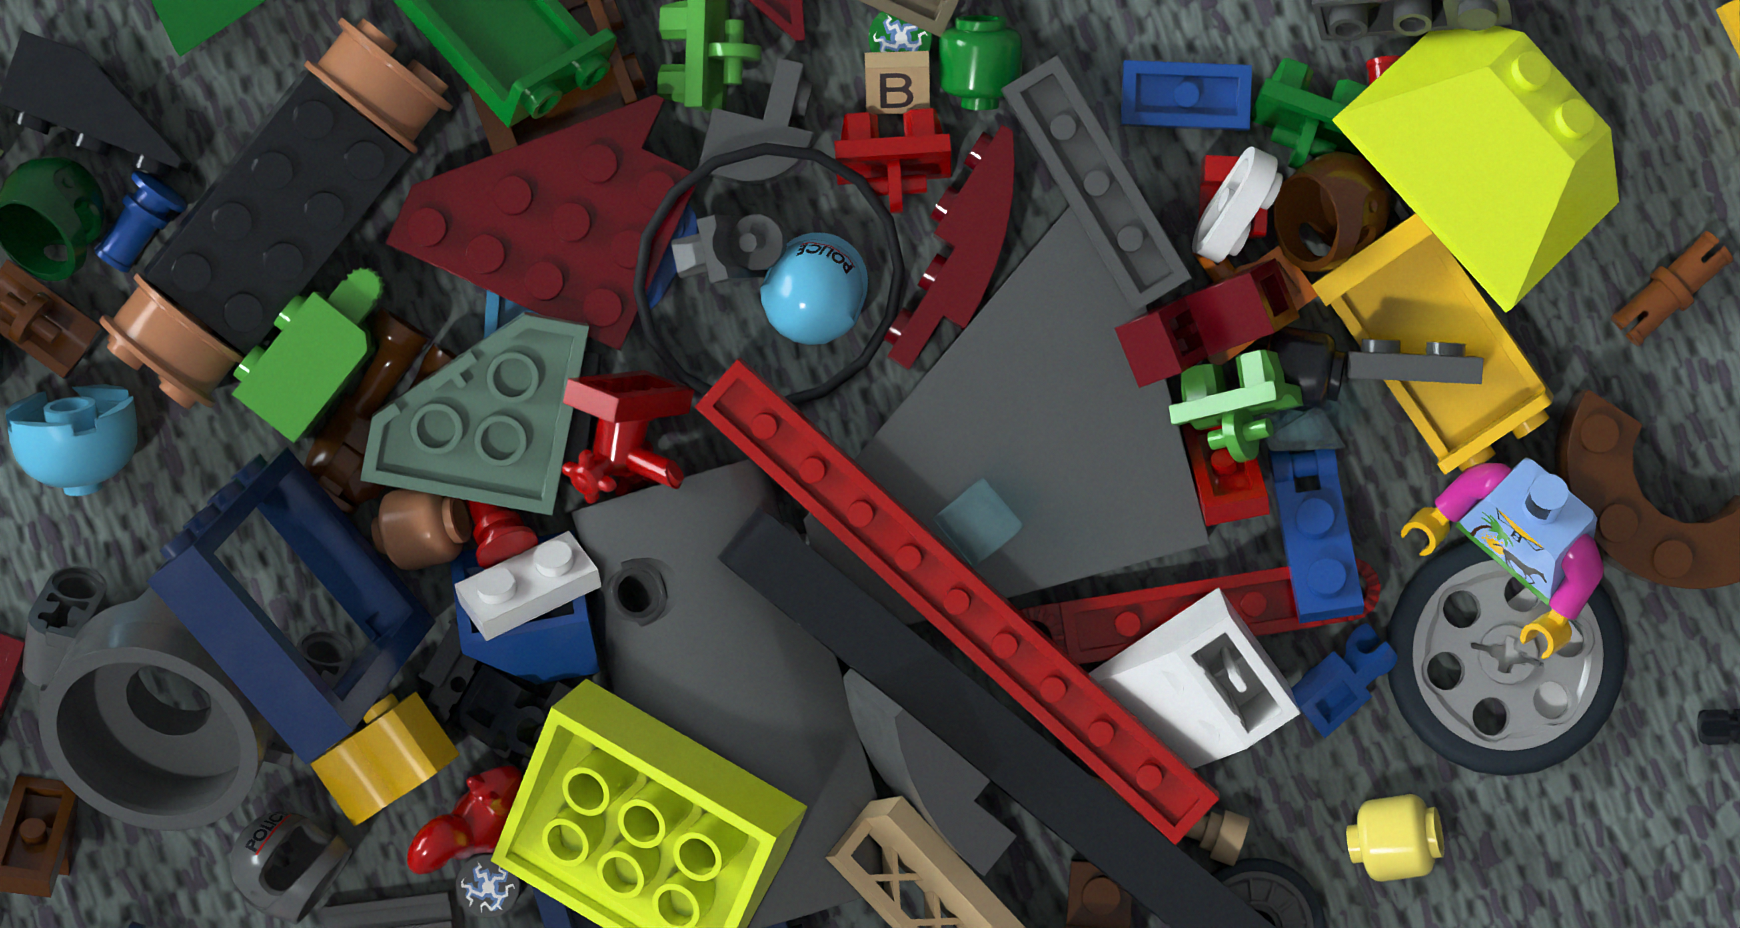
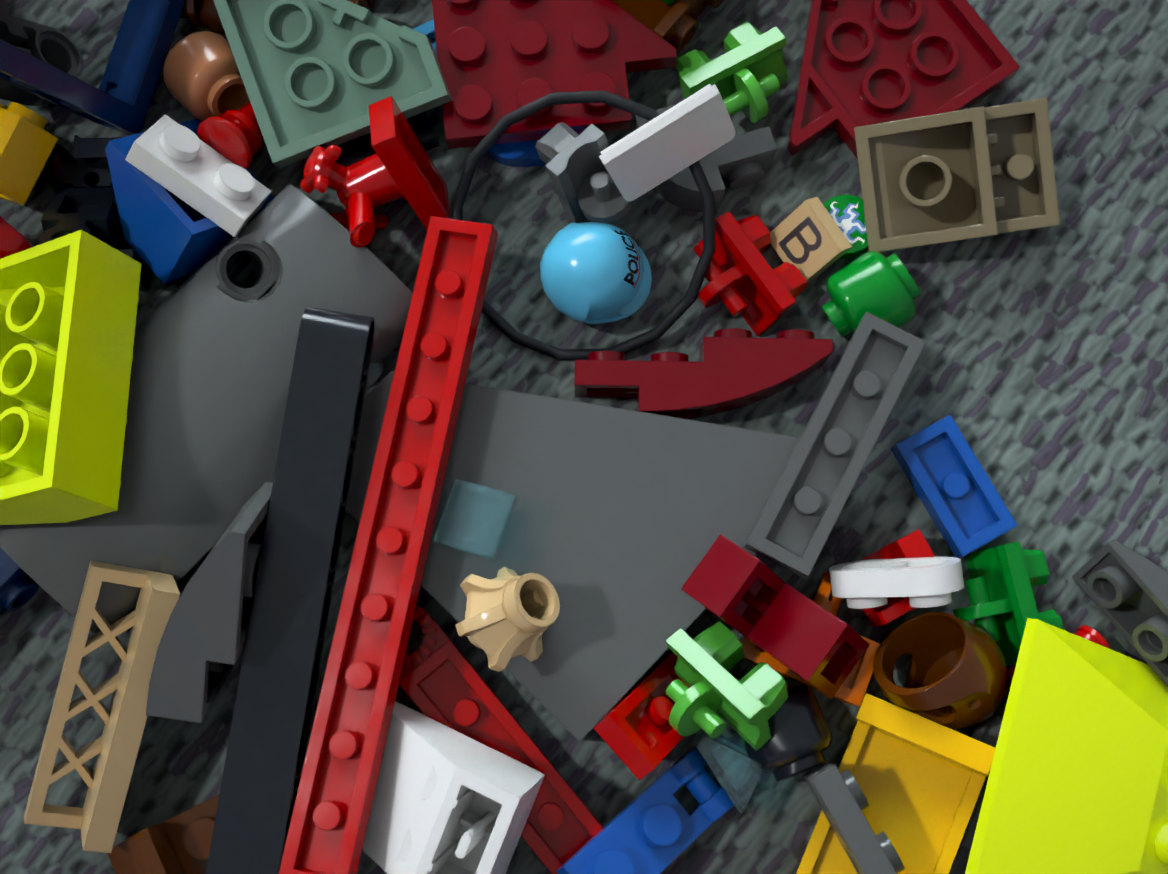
camera: 60 degrees right, 10 degrees down
(756, 167) = (669, 143): none -> white slope
(1077, 540) = (508, 615): none -> tan rock

